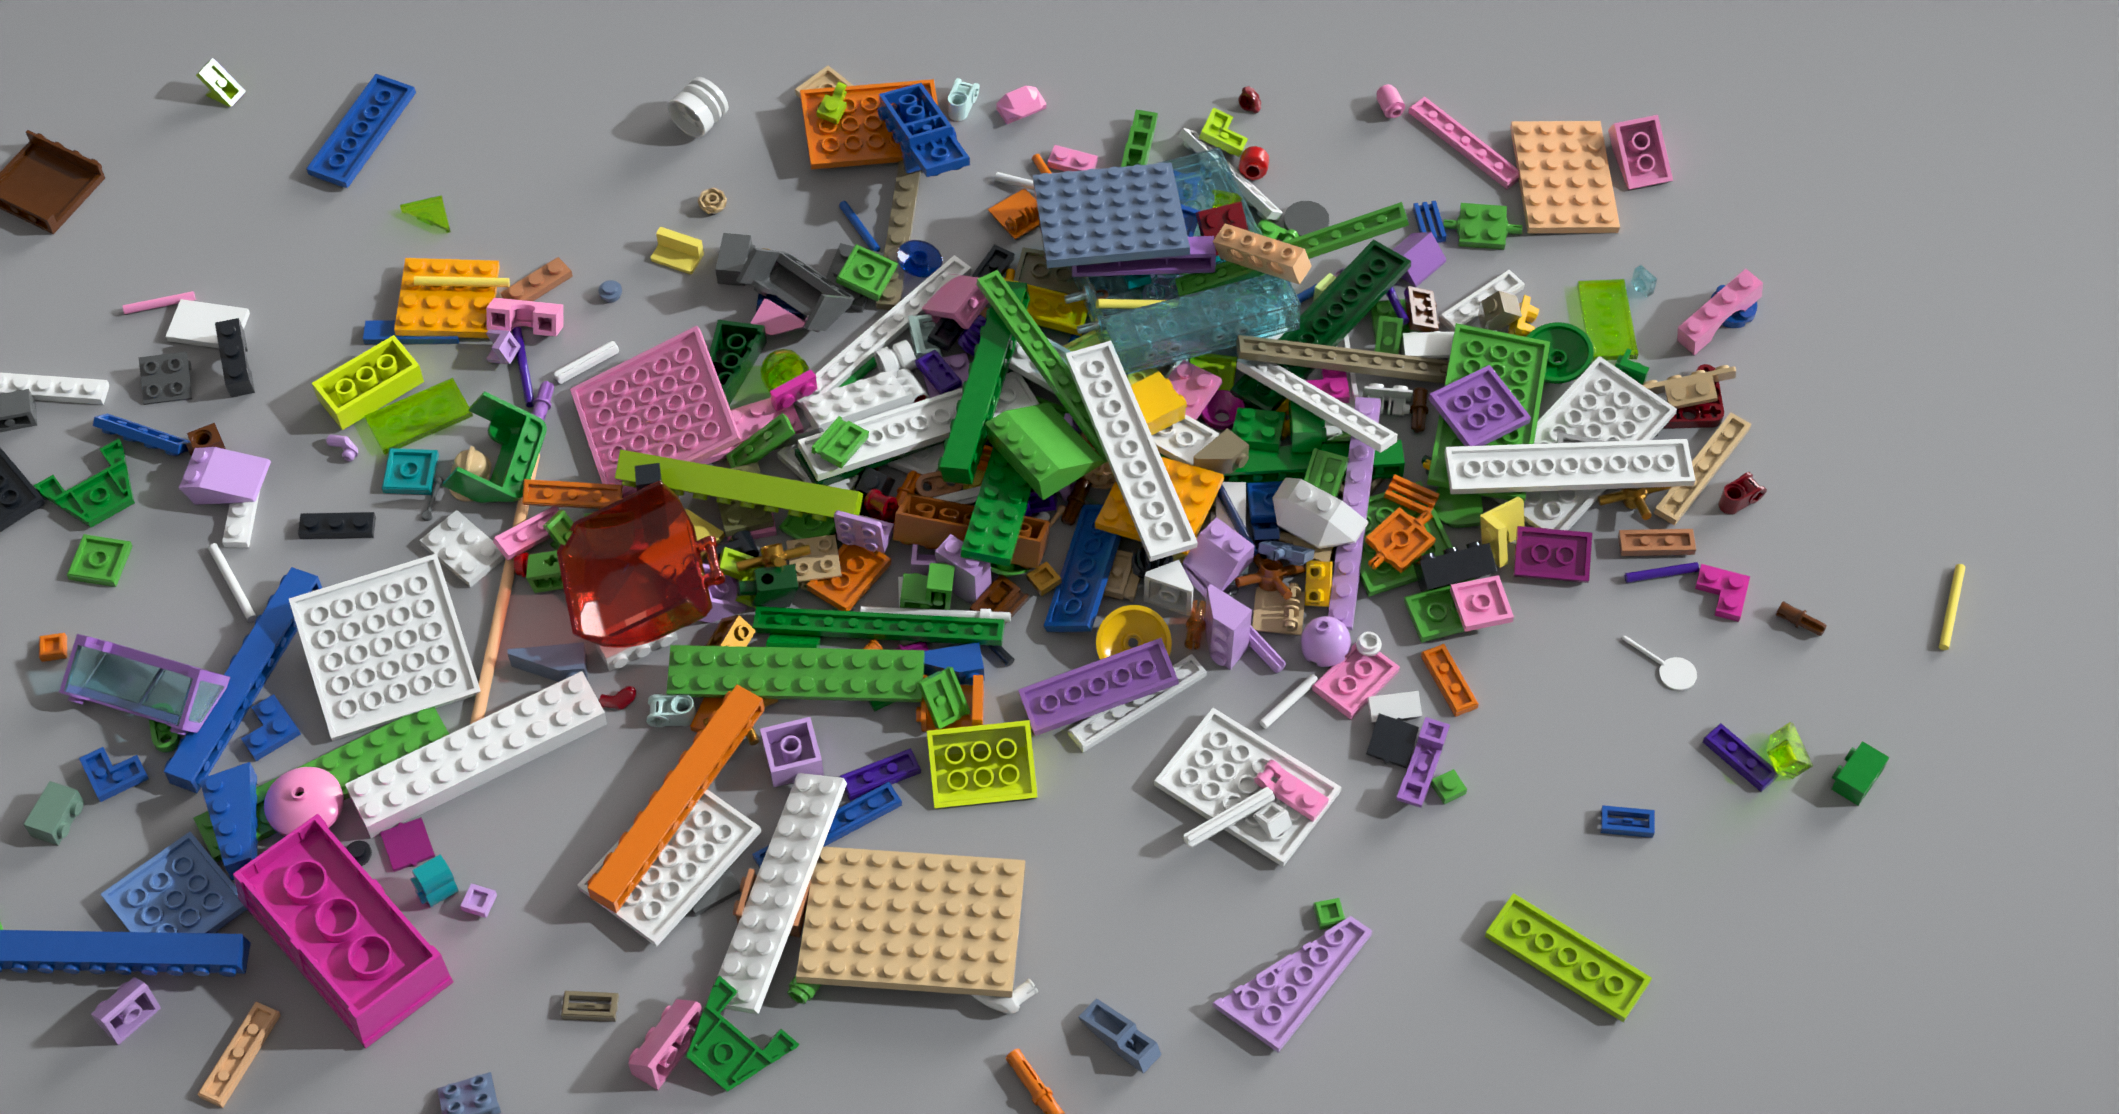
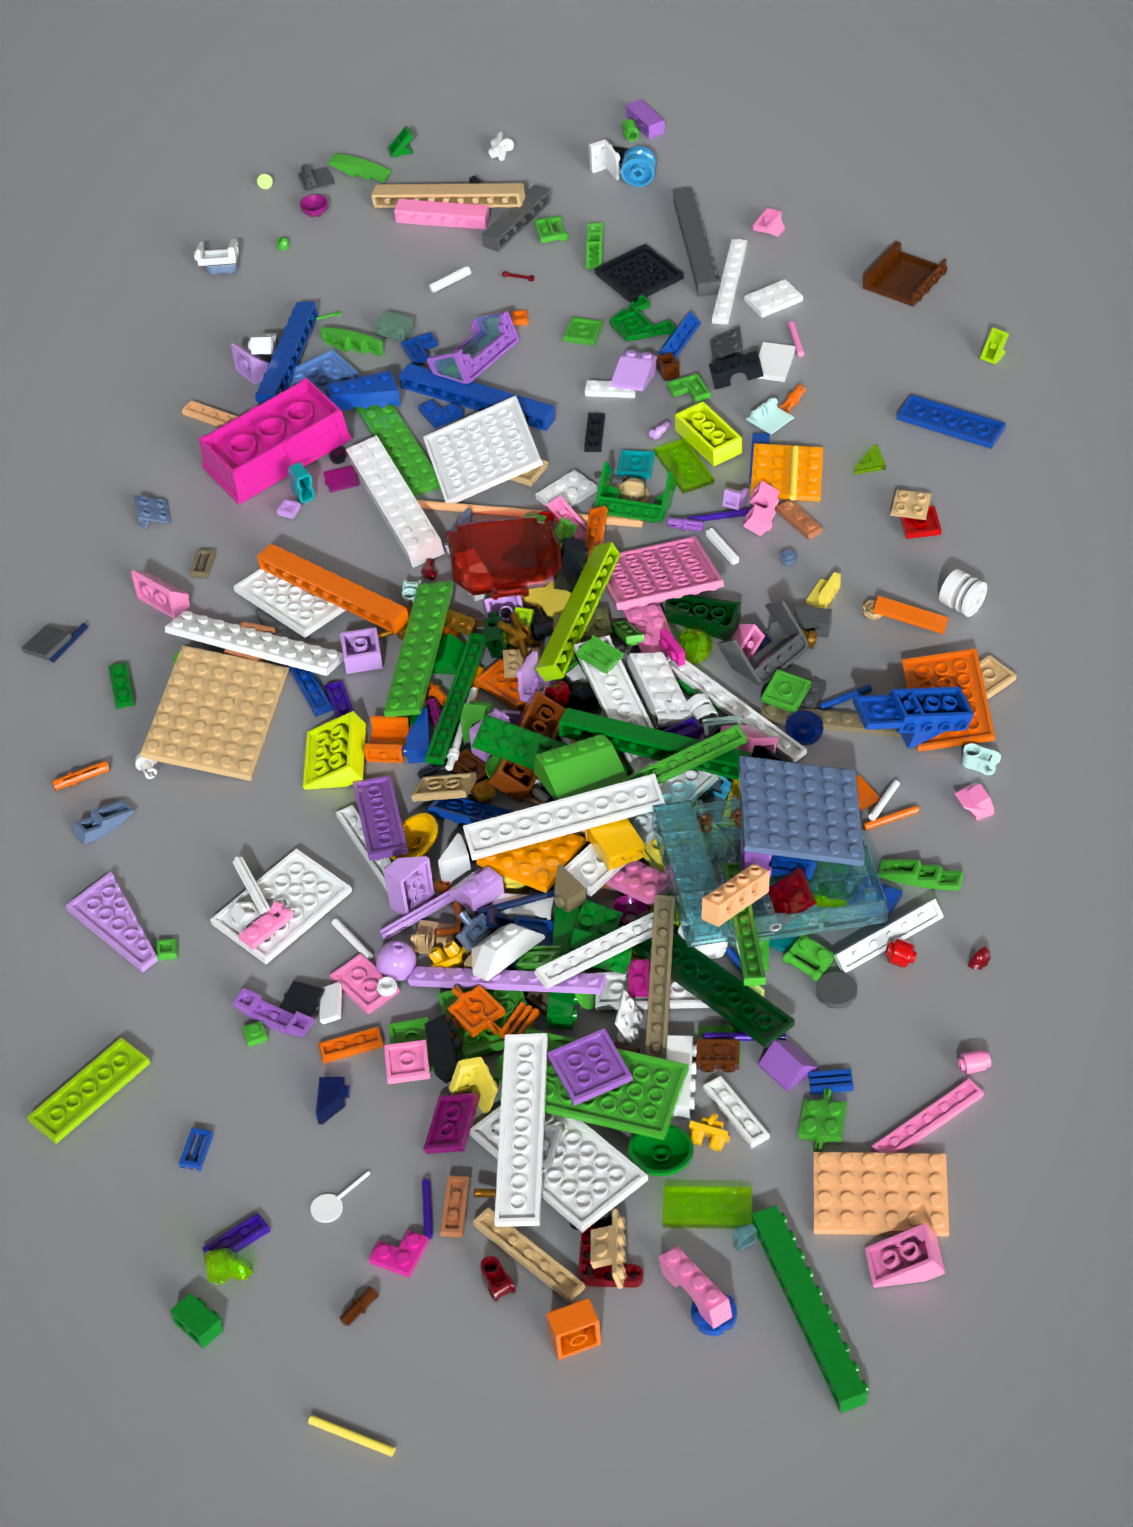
camera: 100 degrees right, 10 degrees down
(62, 332) = (773, 298): none -> white plate
(75, 993) = (263, 343): none -> white arch
(78, 876) = (347, 340): none -> bright green slope
(232, 582) = (557, 388): white bar -> none
(251, 413) = (690, 384): none -> bright green plate
(294, 298) = (793, 398): none -> orange pin
(320, 796) = (375, 422): bright pink dish -> none
(329, 323) = (769, 416): none -> light aqua hinge
(526, 164) = (911, 504): none -> tan hinge
(554, 158) = (922, 528): none -> red plate
(724, 1050) = (147, 618): green wing -> none
(726, 163) = (910, 614): none -> orange tile
(833, 106) = (956, 667): lime plate -> none
(849, 1070) = (121, 685): none -> green plate
(944, 697) = (385, 726): bright green plate -> none
(1042, 620) = (444, 787): none -> tan tile
(1071, 160) = (911, 832): bright pink plate -> none
(1123, 303) = (713, 835): light yellow bar -> none
(1217, 133) = (935, 927): lime plate -> none
(1389, 335) = (690, 1026): bright green plate -> none
(1498, 311) = (703, 1101): dark tan slope -> none
(1536, 684) = (331, 1097): none -> clear blue slope
(1633, 369) = (641, 1211): green bracket -> none
(1713, 226) = (809, 1310): none -> green brick
(1793, 410) = (573, 1328): none -> orange brick

